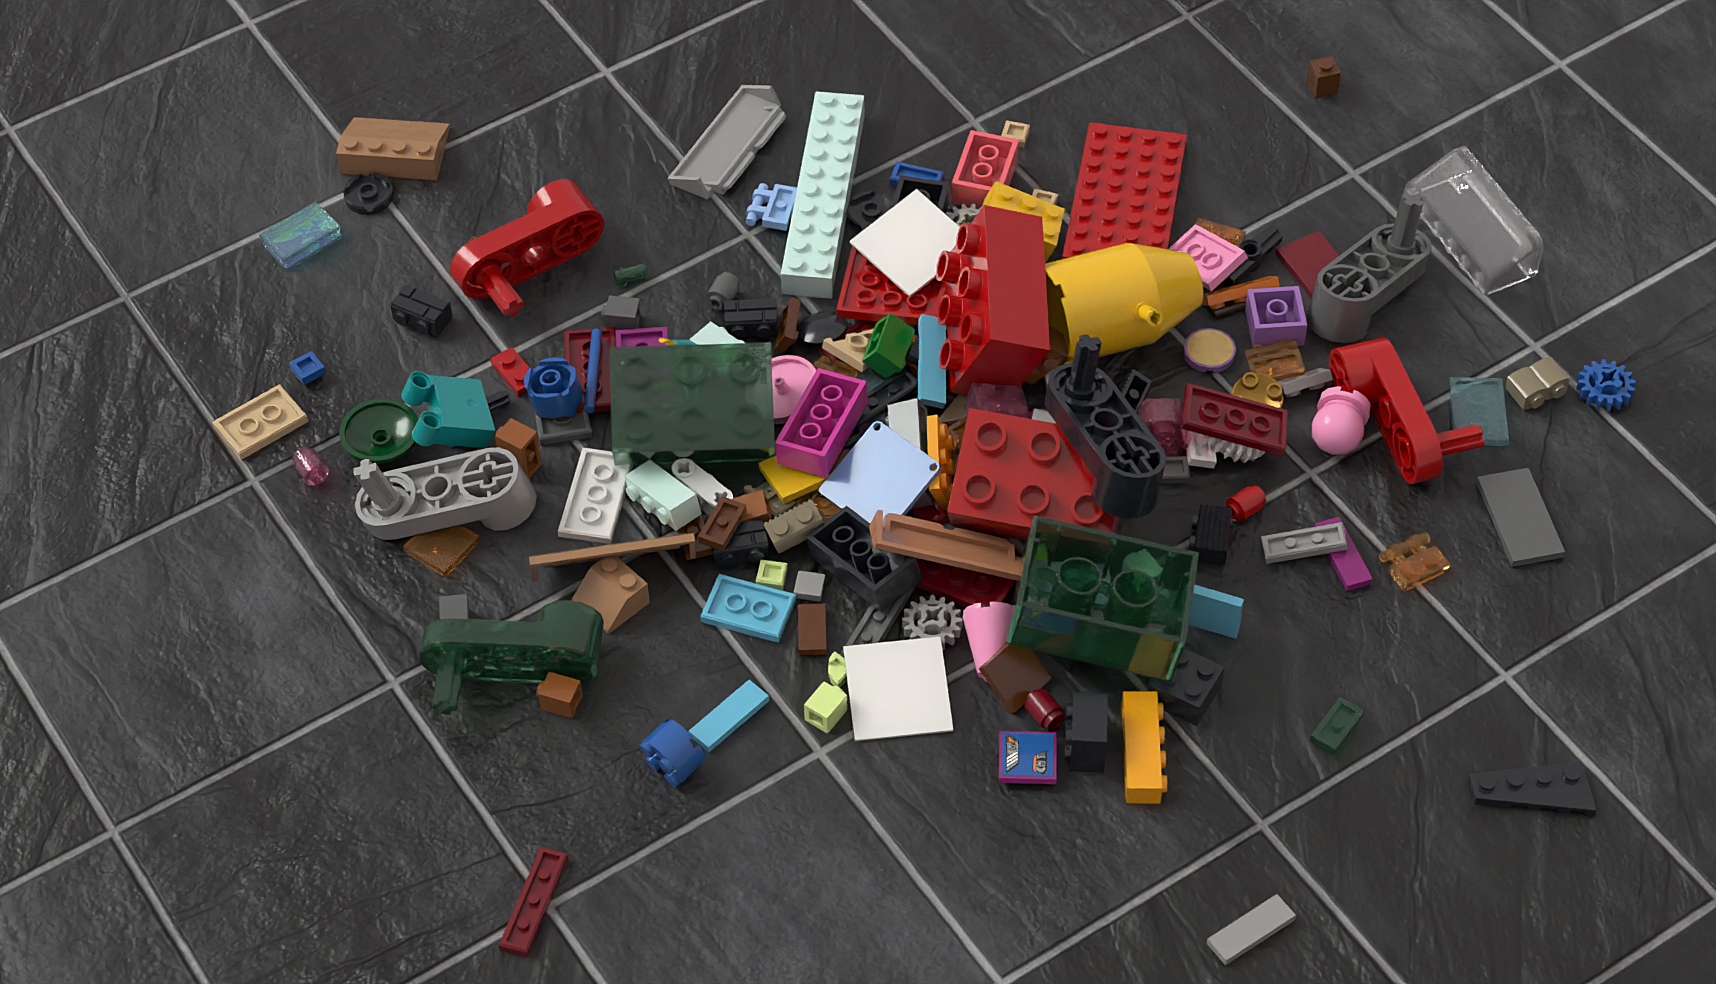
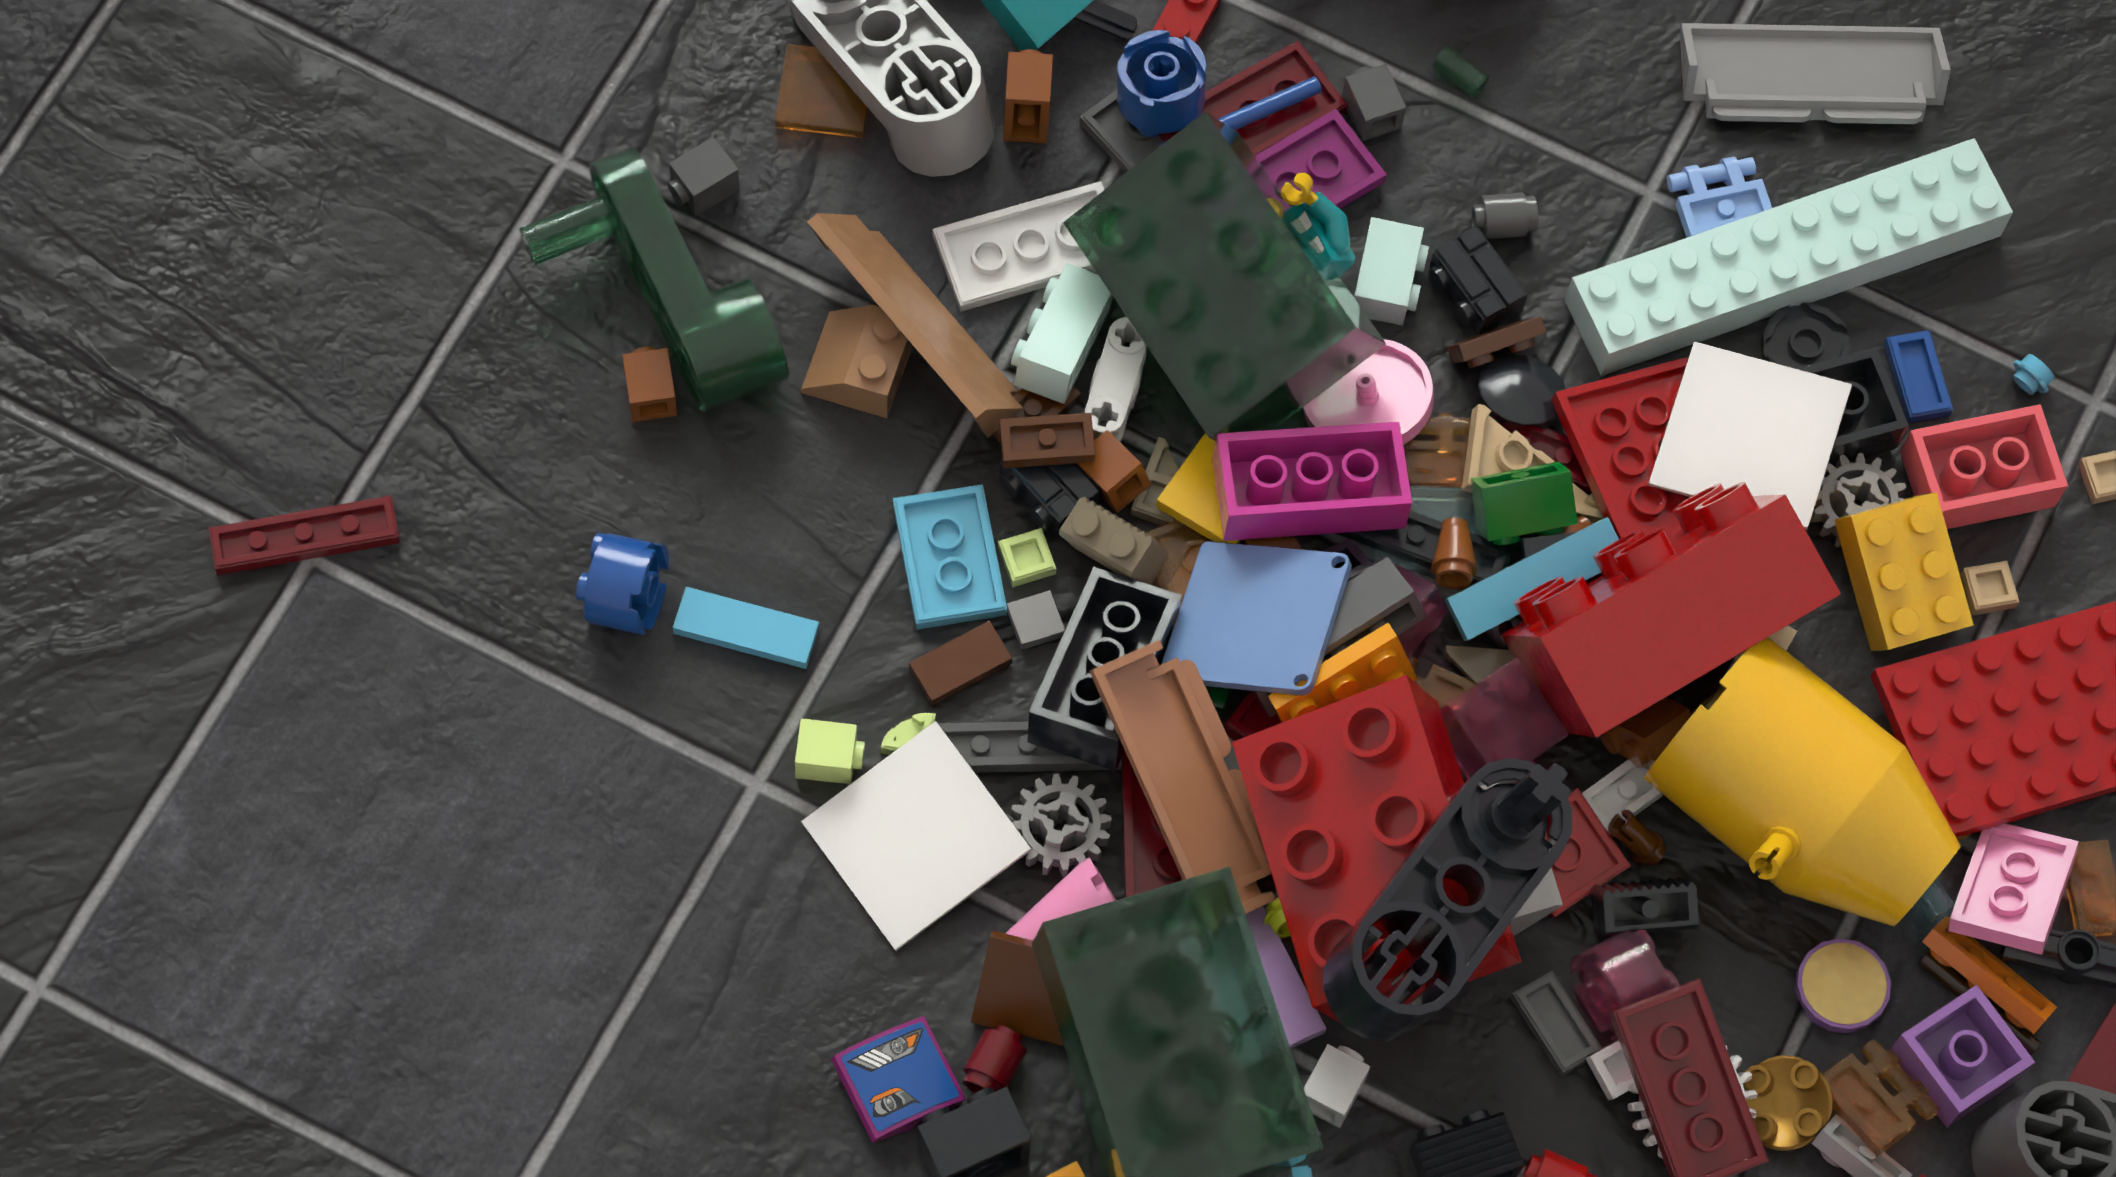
camera: 55 degrees right, 15 degrees up
(897, 387) = (1454, 555): none -> dark orange cone
(946, 134) = (2032, 375): none -> medium azure plate

